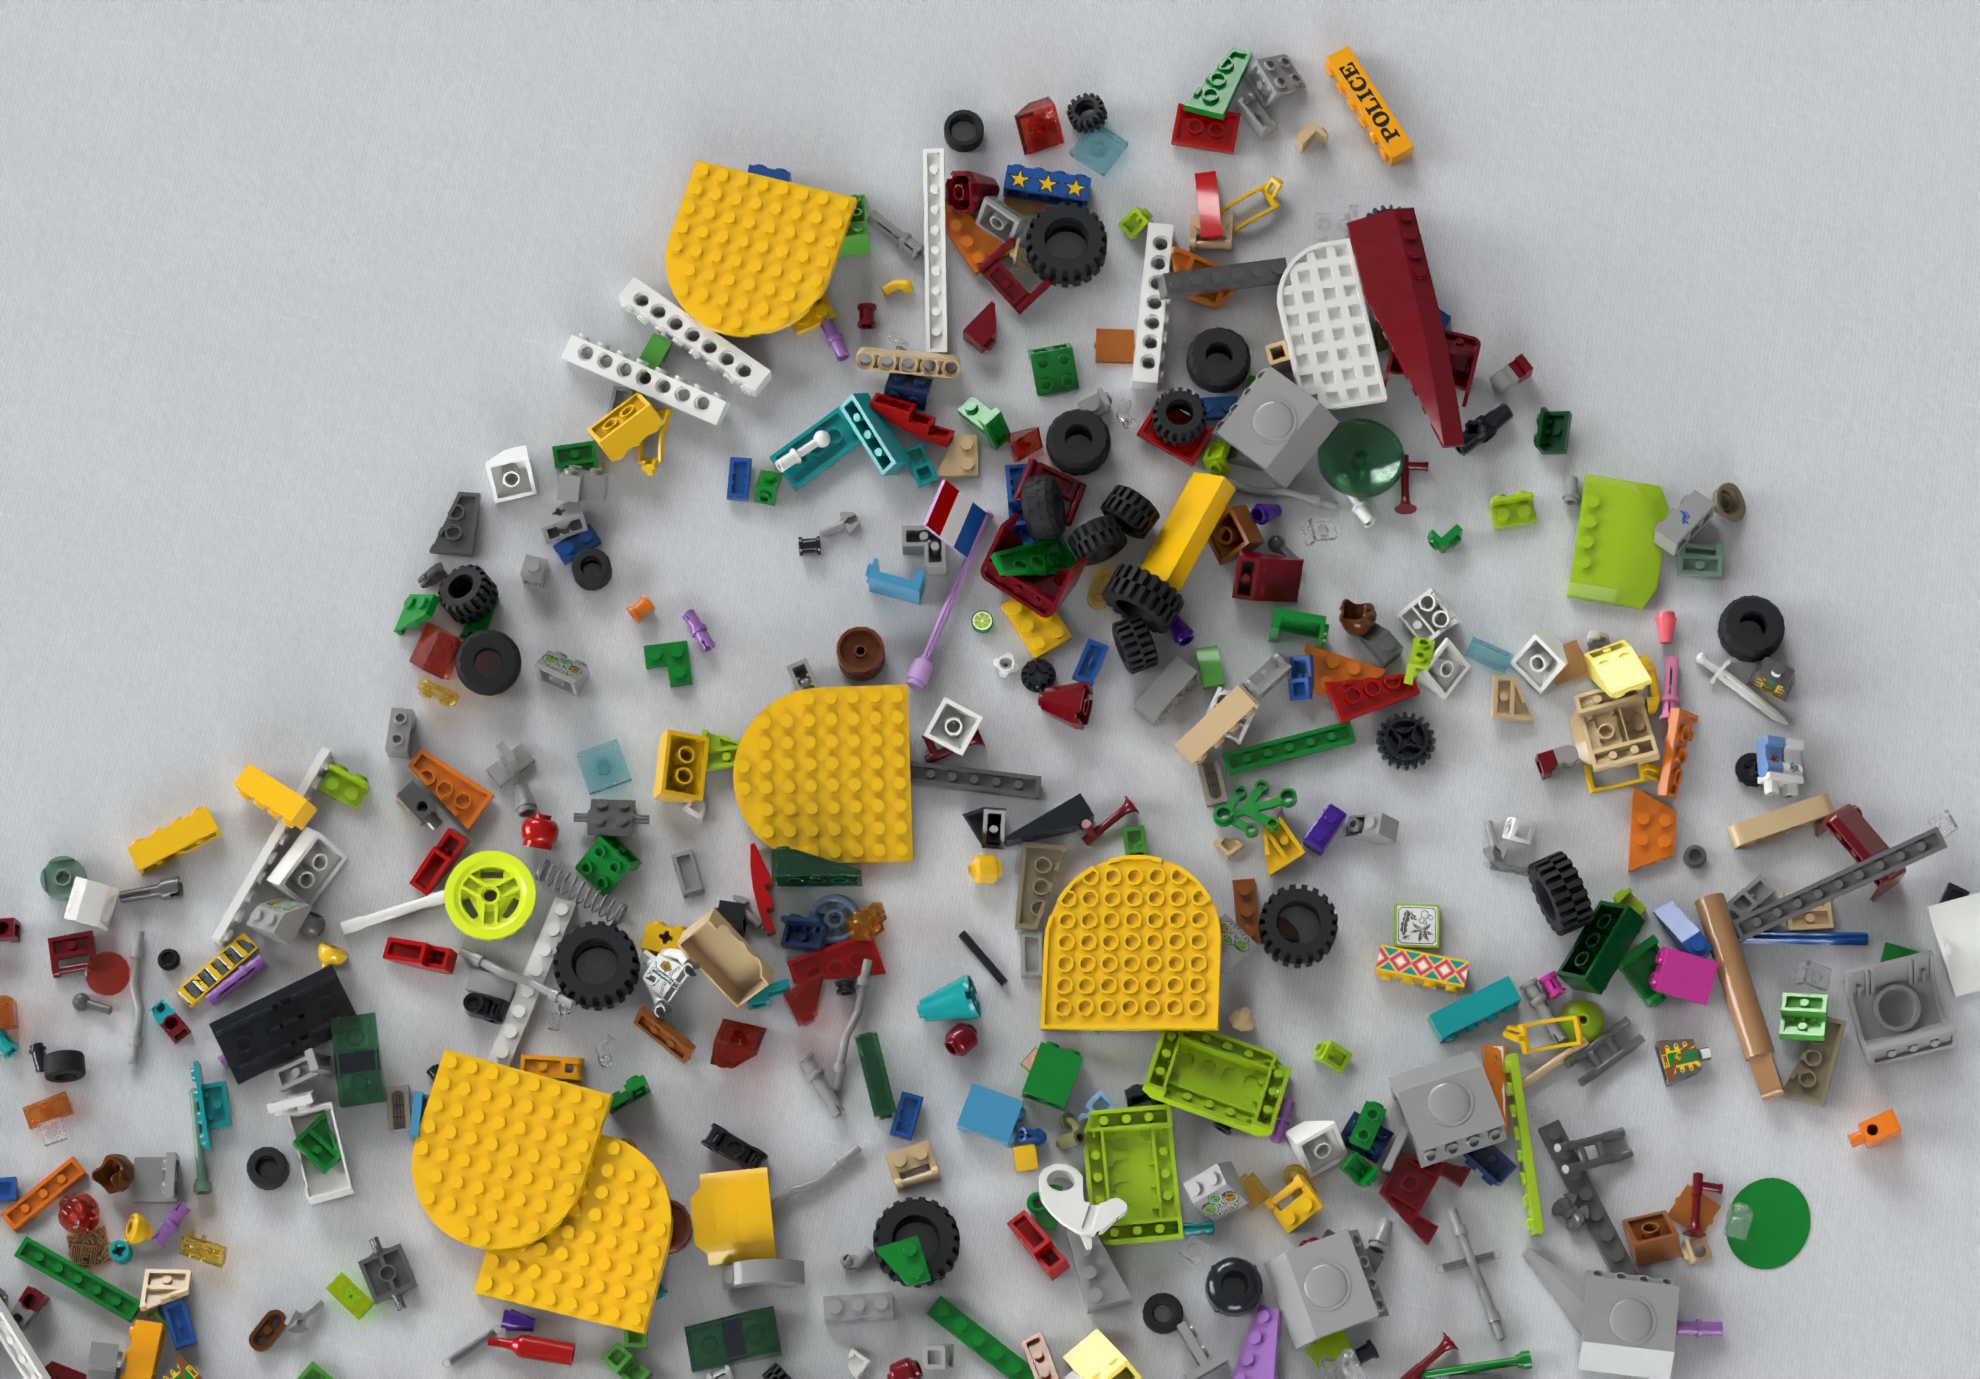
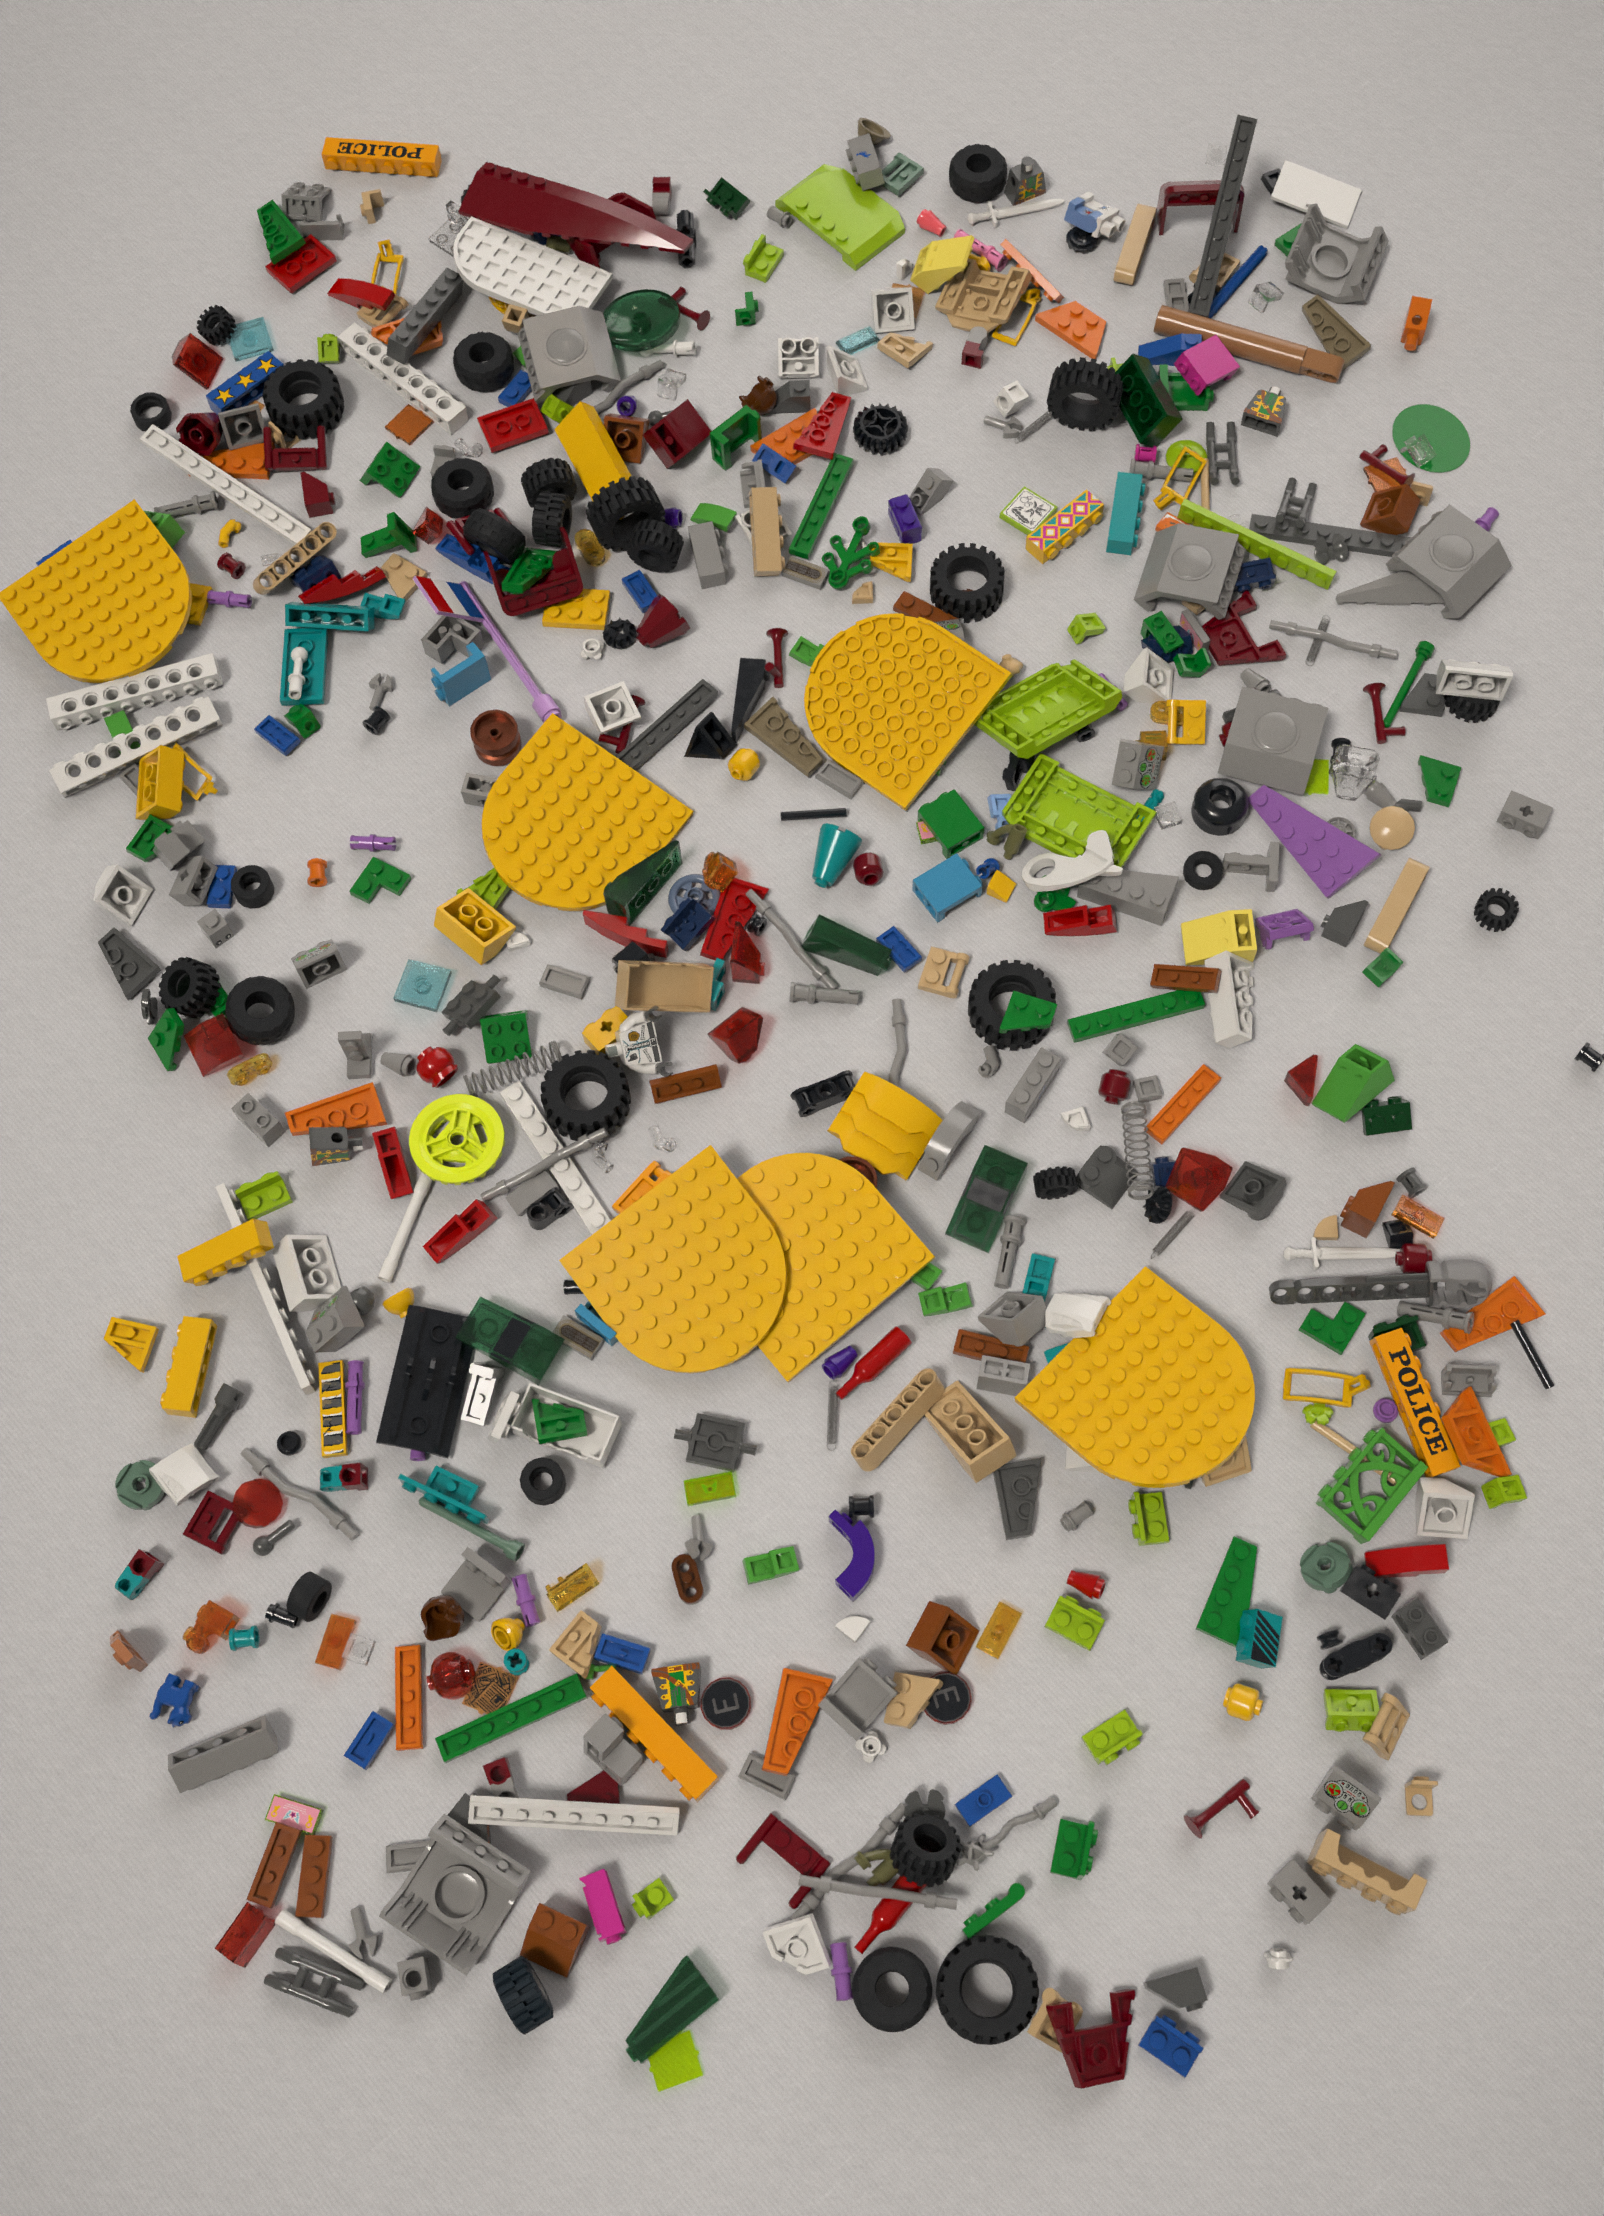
camera: 50 degrees left, 5 degrees down
(164, 782) = (131, 1340): none -> yellow wing
(634, 1089) = (714, 1131): green plate -> none
(982, 621) = (543, 643): tile -> none
(1179, 401) = (500, 395): black tyre -> none
(1419, 658) = (824, 377): lime bracket -> none
(1694, 856) = (1117, 312): dark grey tile -> none
(1803, 1016) = (1293, 318): bright green slope -> none

